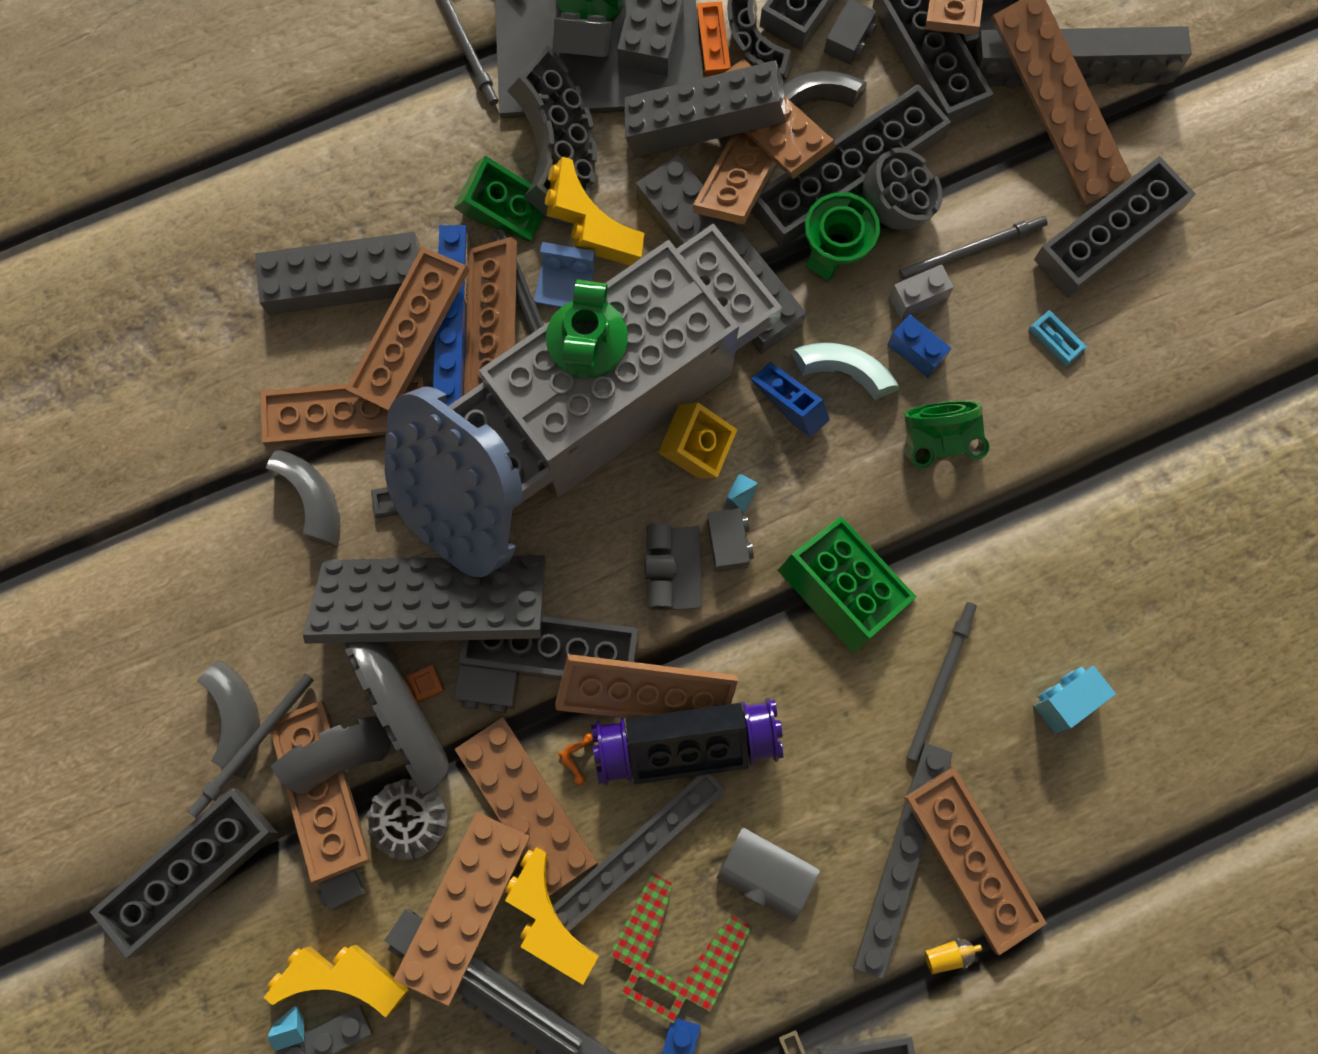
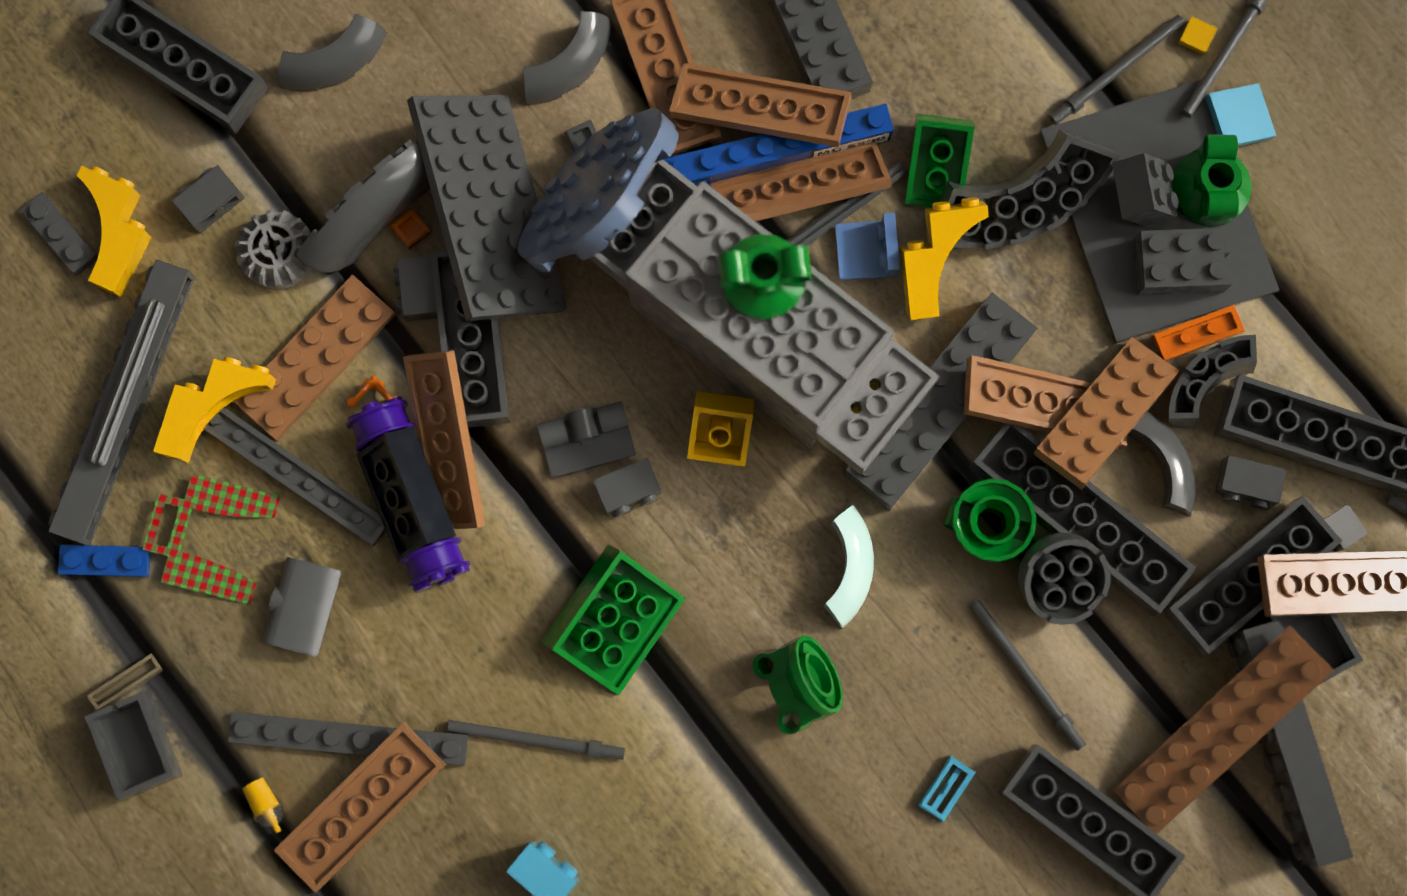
camera: 75 degrees right, 5 degrees up
(213, 790) = (256, 61): dark grey bar -> none
(287, 1029) = (59, 196): medium azure slope -> none
(327, 814) = (279, 158): medium nougat plate -> none
(334, 752) = (315, 160): dark grey brick -> none
(461, 909) = (199, 321): medium nougat plate -> none
(705, 109) = (1095, 342): dark grey brick -> none
(741, 492) = (681, 488): medium azure slope -> none
(793, 399) = (797, 515): blue slope -> none
(919, 346) = (892, 637): blue brick -> none
(921, 292) = (955, 627): light grey brick -> none

